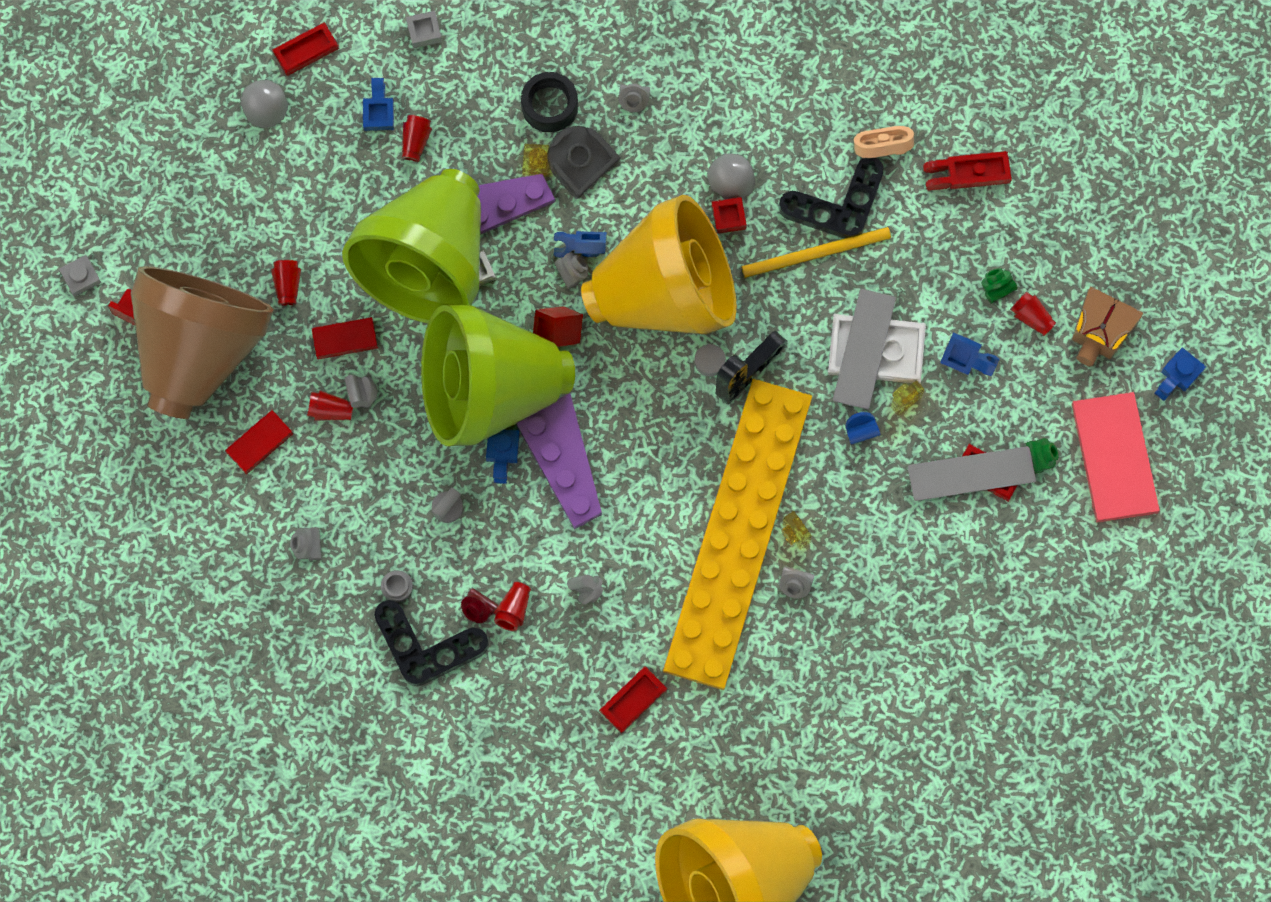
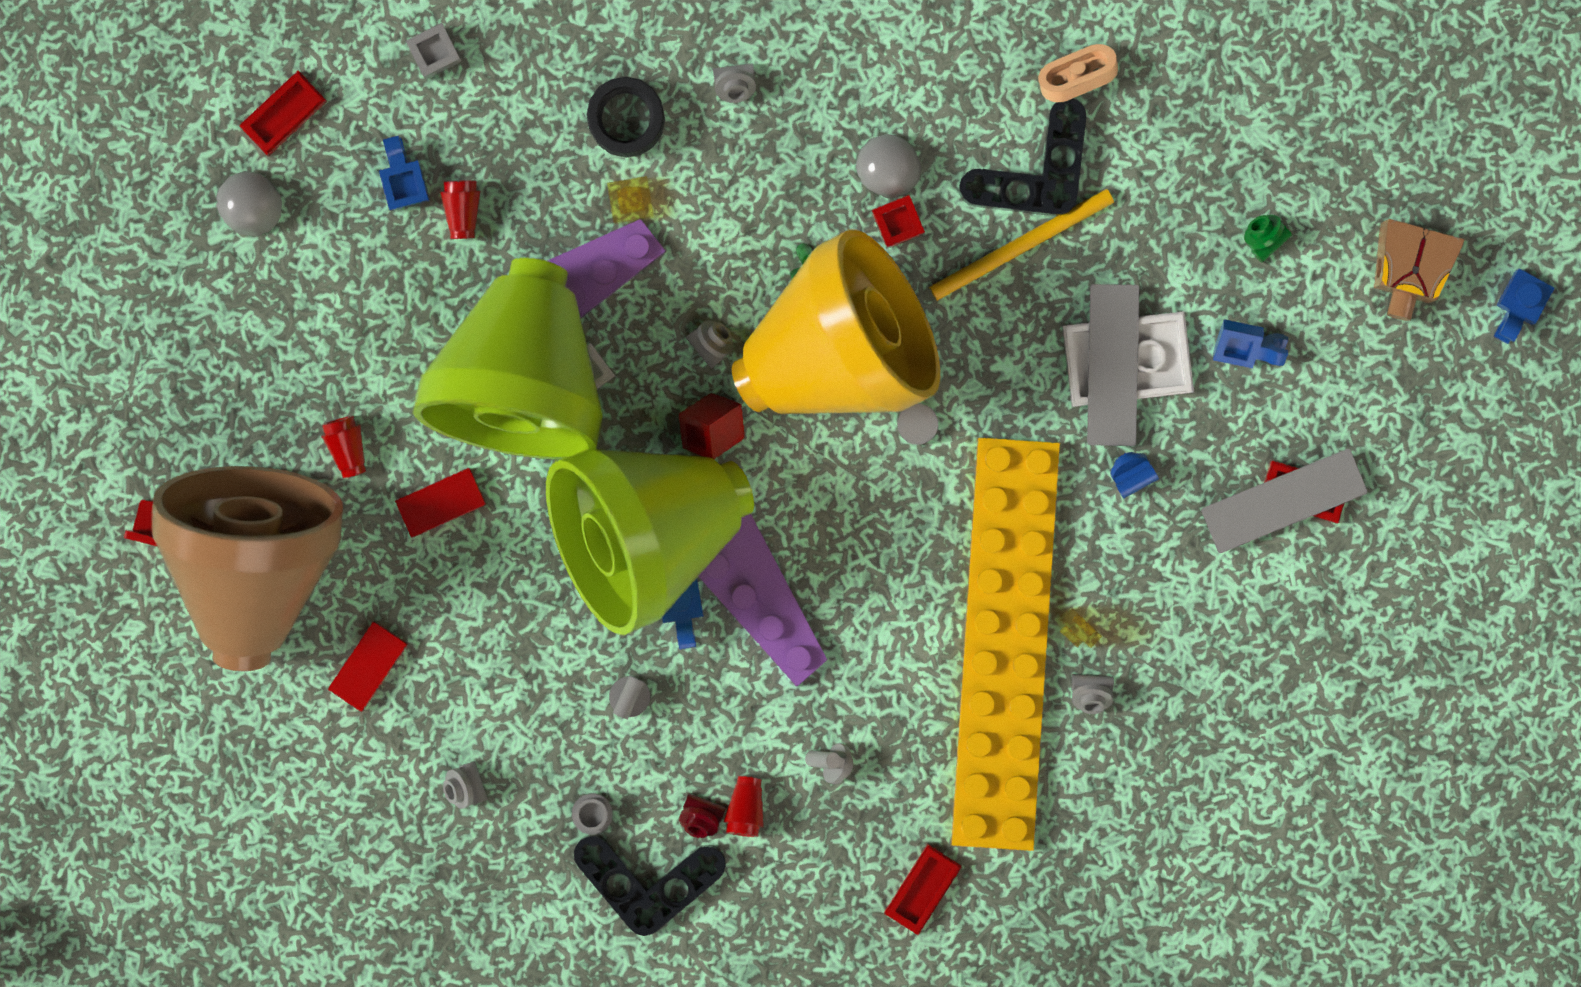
camera: 10 degrees left, 15 degrees up
(80, 275) = (74, 497): light grey plate -> none
(329, 407) = (445, 601): red cone -> none
(361, 391) = (481, 571): light grey plate -> none
(579, 158) = (685, 188): dark grey tile -> none
(587, 243) = (720, 303): blue plate -> none
(737, 374) = (964, 442): black beam -> none
(906, 396) = (1180, 418): clear yellow plate -> none
(970, 171) = (1200, 86): red hinge -> none
(1033, 313) = (1319, 266): red cone -> none
(1043, 454) = (1369, 453): green plate -> none
(1115, 457) = (1460, 434): coral tile -> none

